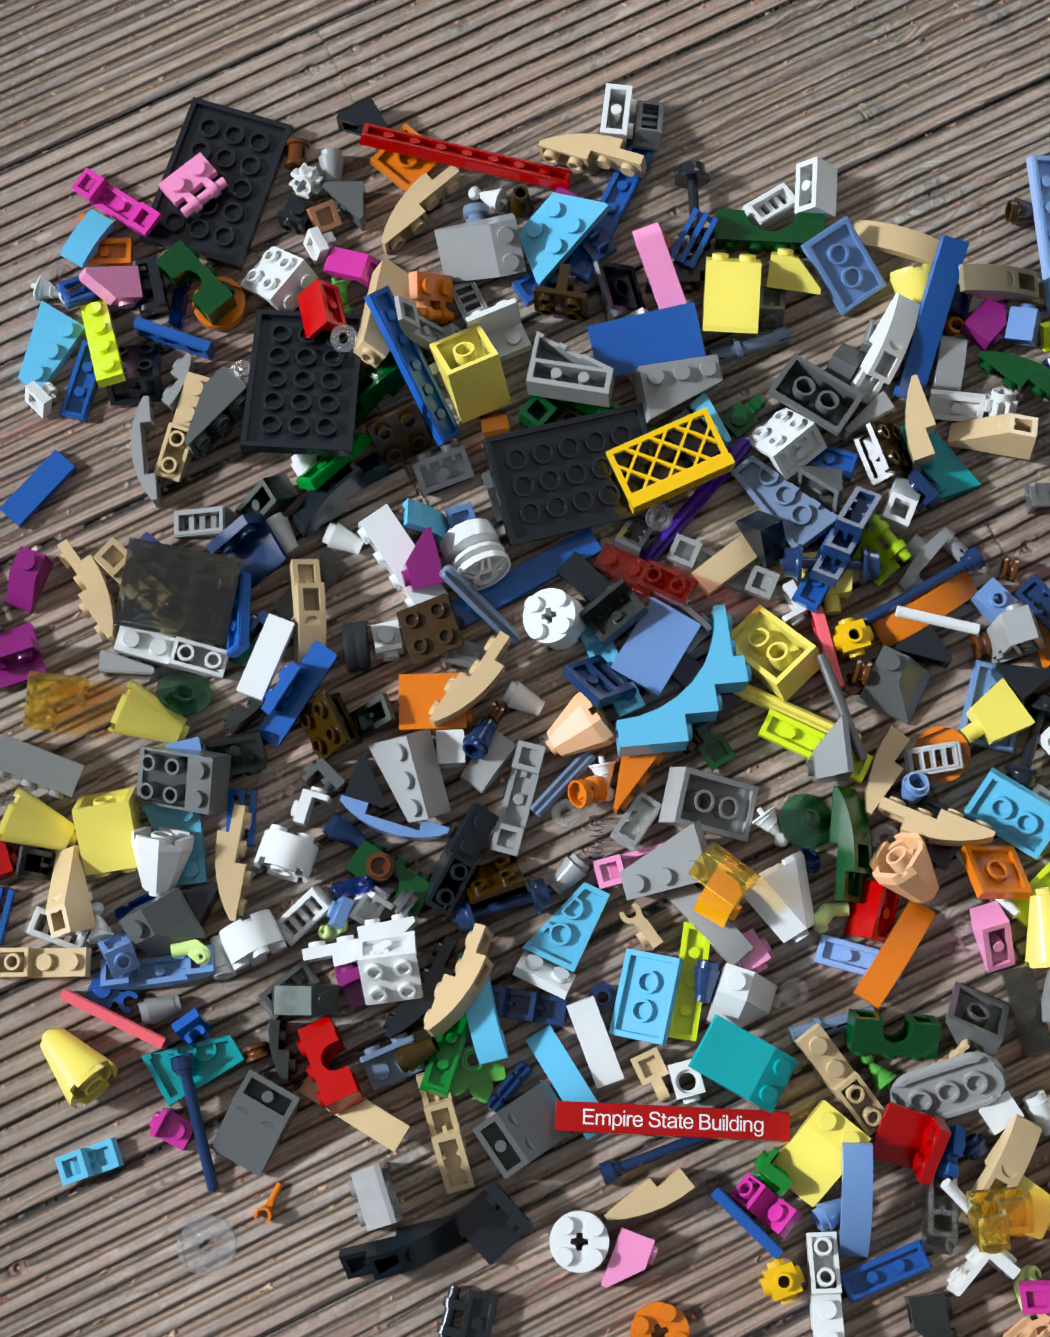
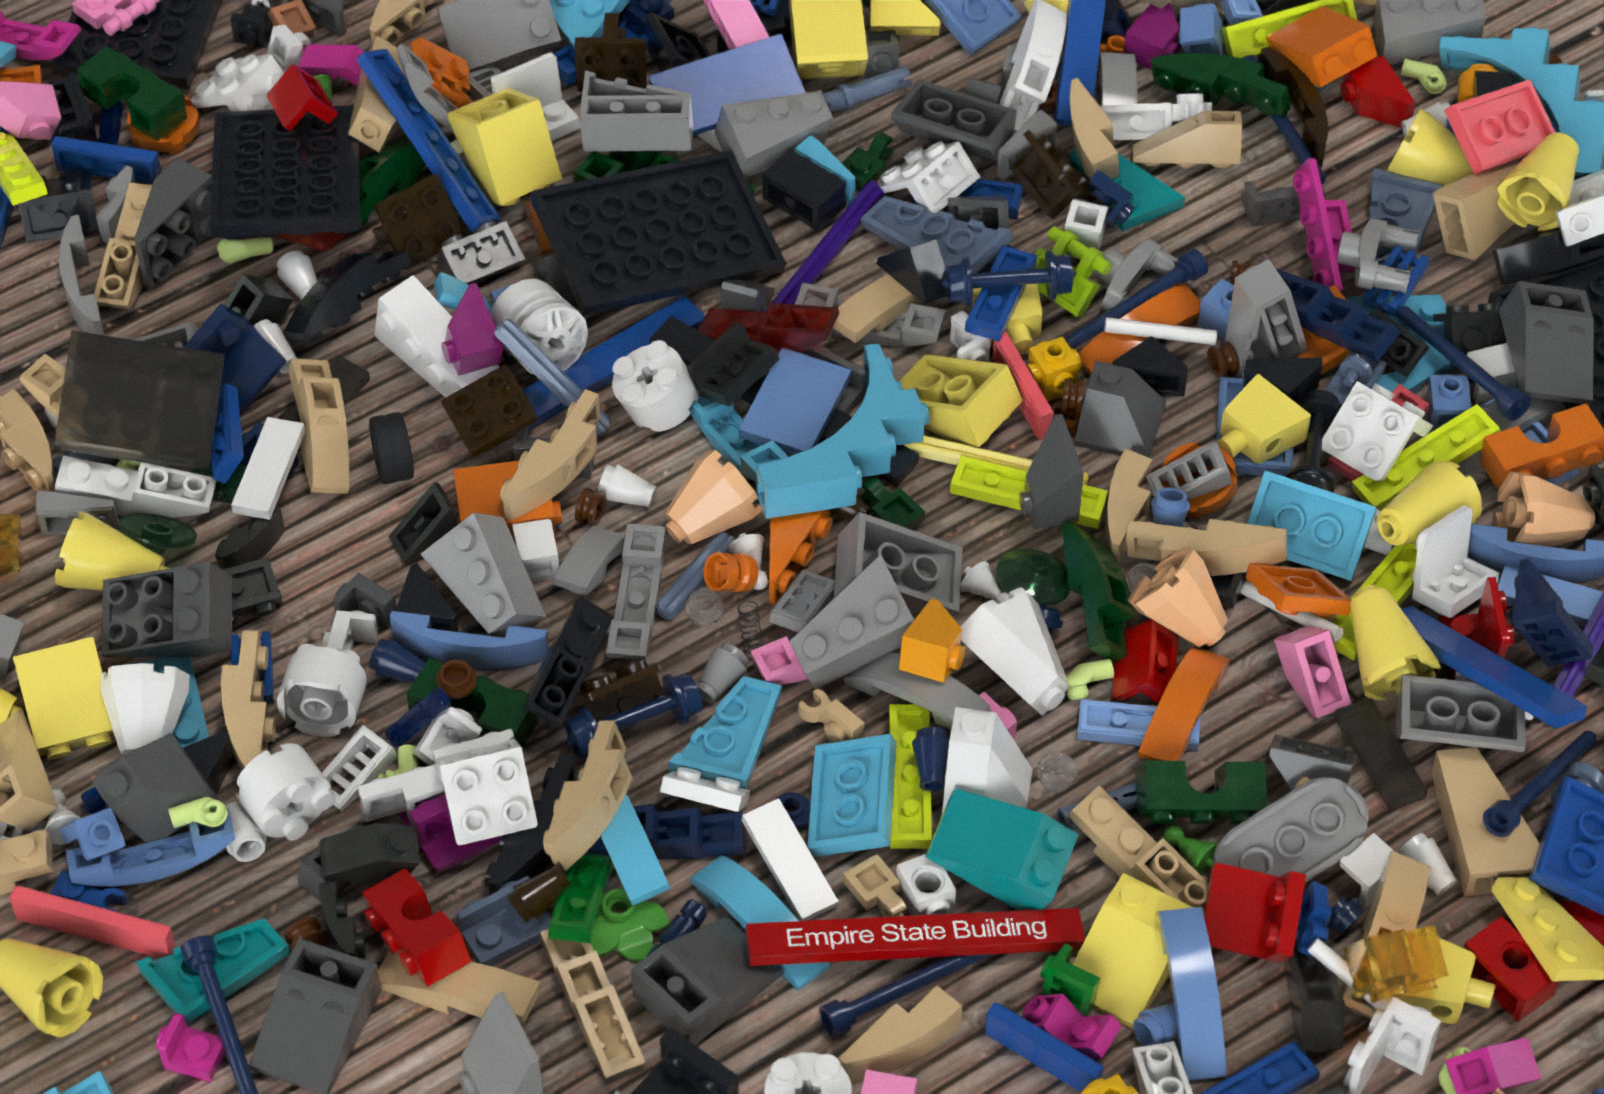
camera: 15 degrees left, 25 degrees down
(159, 1009) = (158, 902): light grey cone -> none
(191, 1027) = (206, 914): blue tile -> none
(293, 692) = (309, 507): blue bracket -> none
(329, 465) = (334, 255): green tile -> none
(329, 725) = (362, 540): dark brown bracket -> none
(339, 912) = (404, 744): medium blue plate -> none
(342, 539) = (356, 344): white cone -> none
(352, 338) = (337, 126): clear plate -> none
(387, 640) = (432, 447): white bracket -> none
(405, 902) = (497, 712): dark grey plate -> none
(478, 741) = (573, 528): dark blue cone -> none
(598, 681) = (726, 439): dark blue plate -> none
(664, 522) = (784, 266): clear plate -> none
(685, 478) = (795, 220): yellow fence -> none
(723, 874) = (931, 605): clear yellow panel -> none
(840, 704) = (1044, 420): flat silver bar -> none
(846, 536) = (1022, 245): dark blue slope -> none

